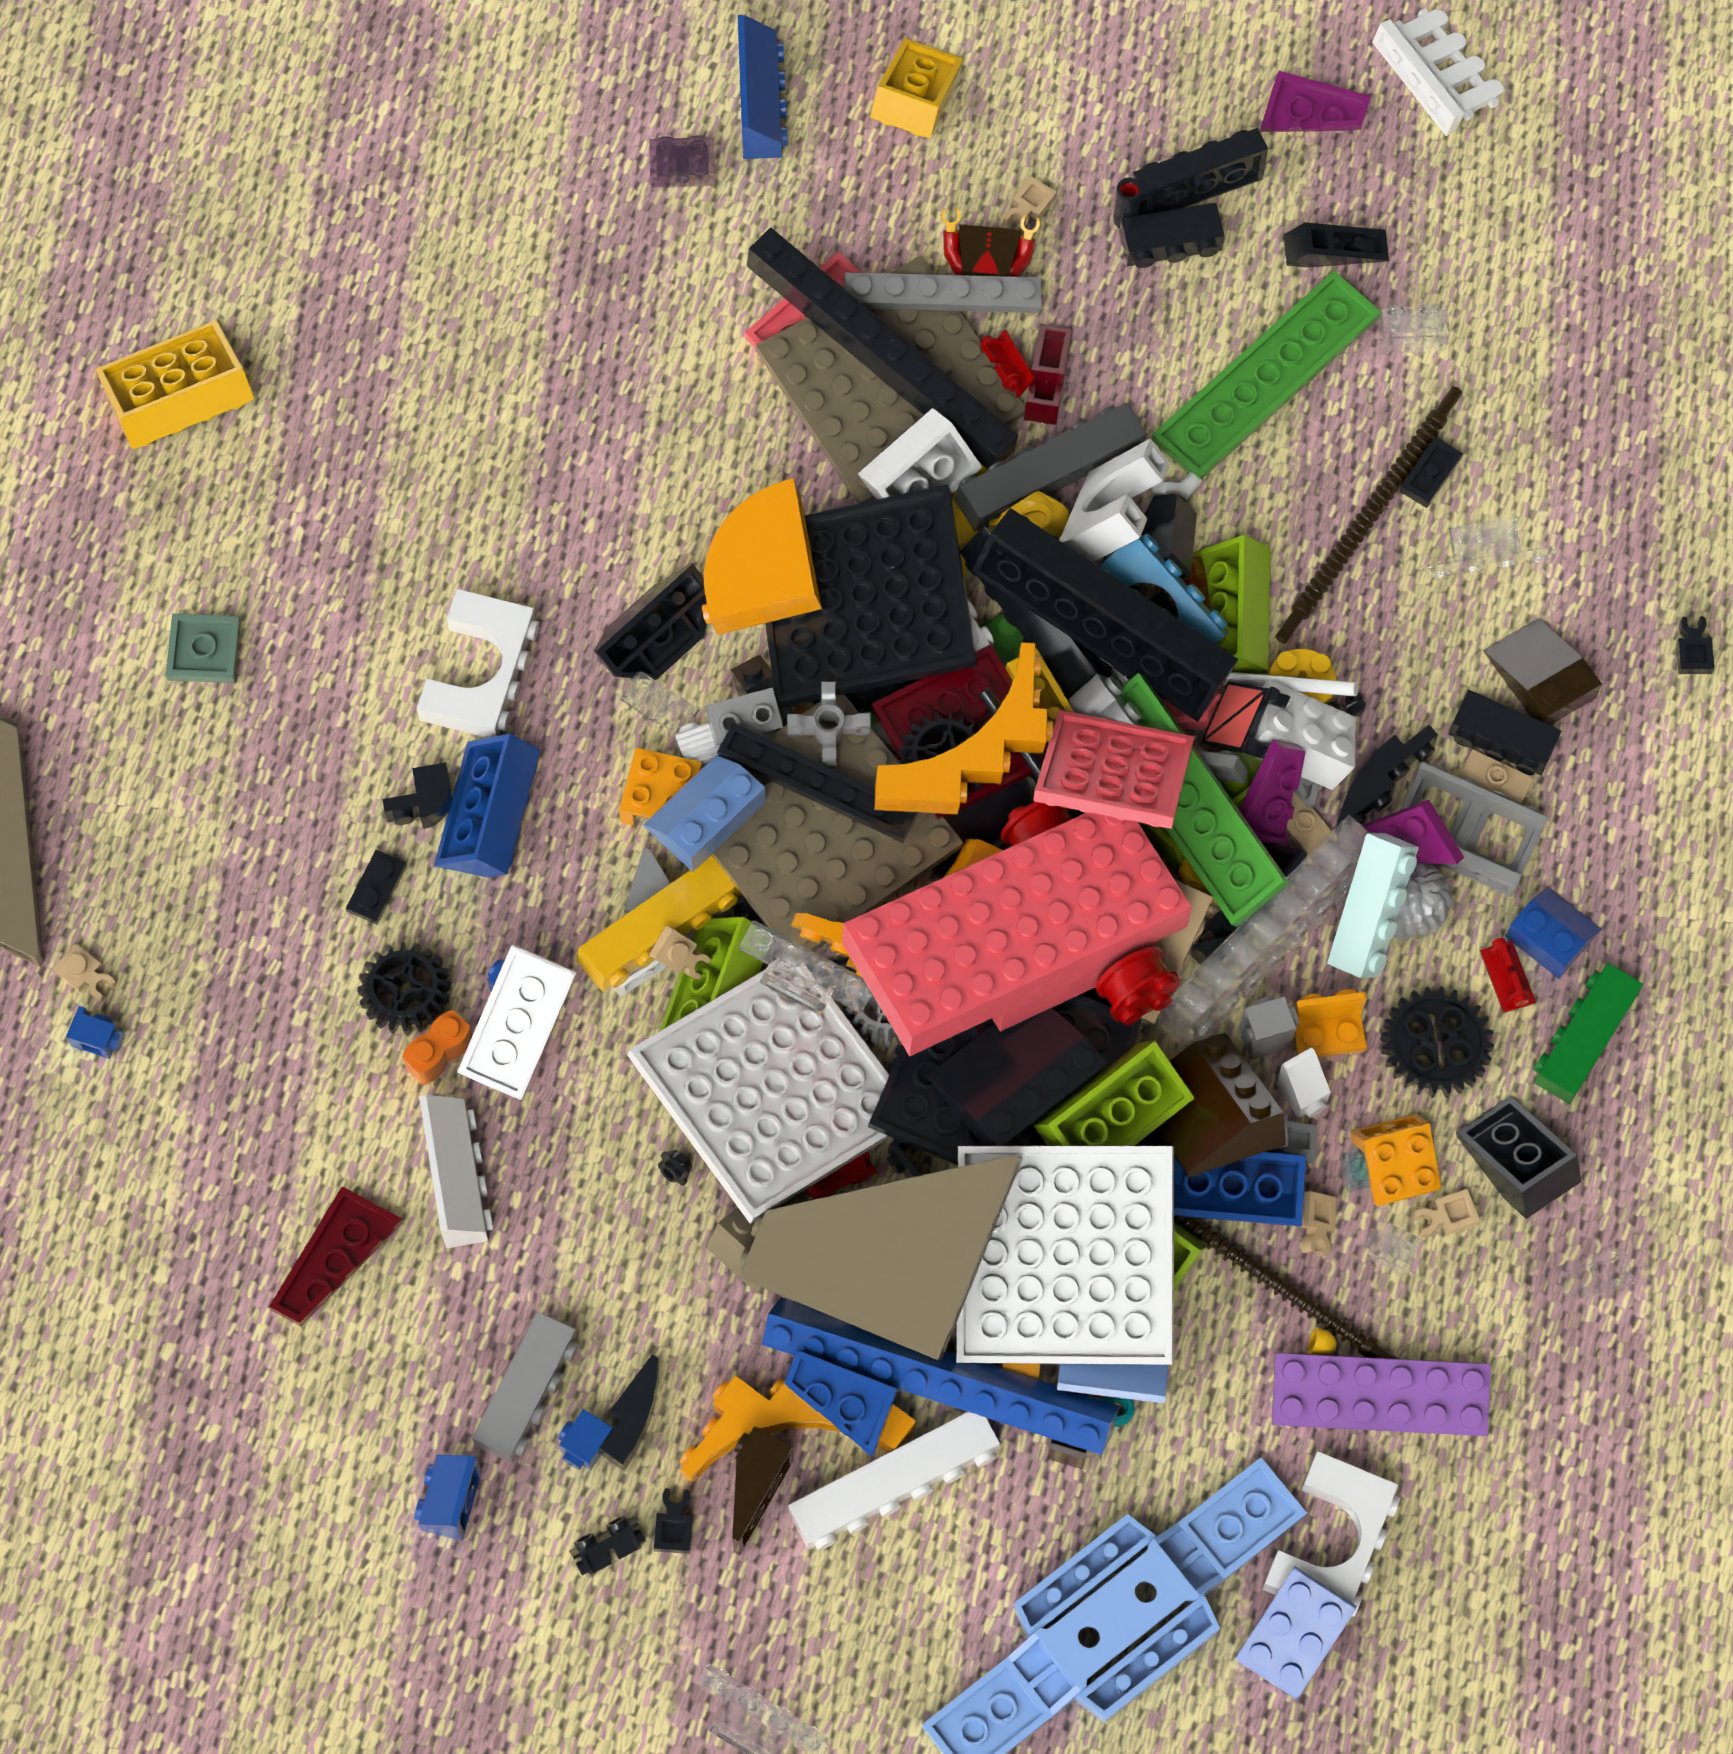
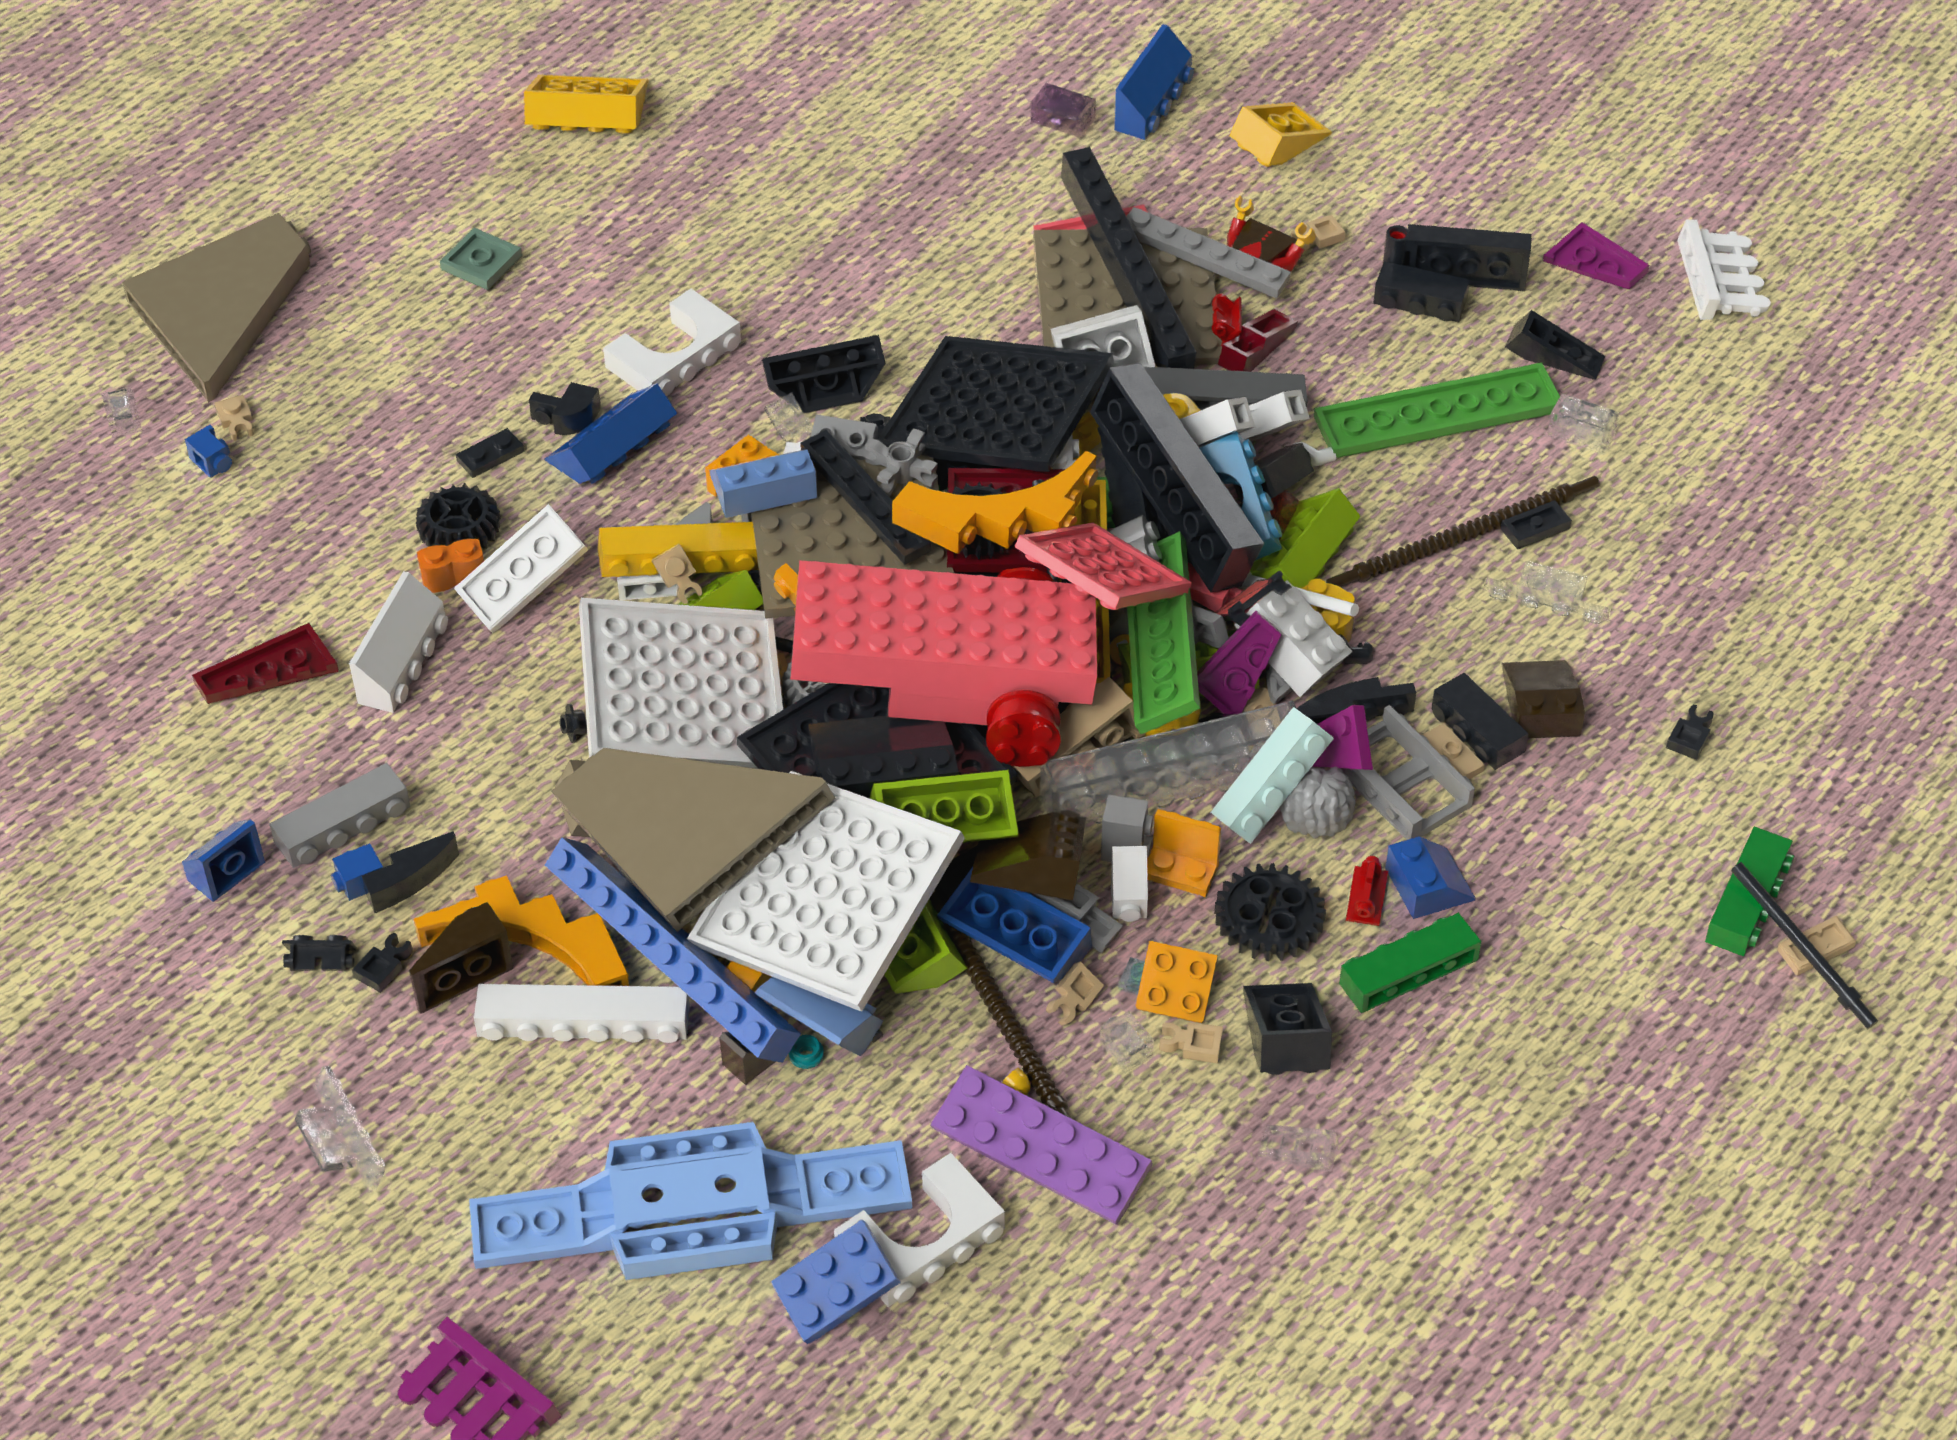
camera: 30 degrees right, 20 degrees down
(761, 562) = (930, 350): light orange brick -> none
(803, 973) = (758, 614): clear bracket -> none
(844, 1397) = (579, 924): blue wing -> none

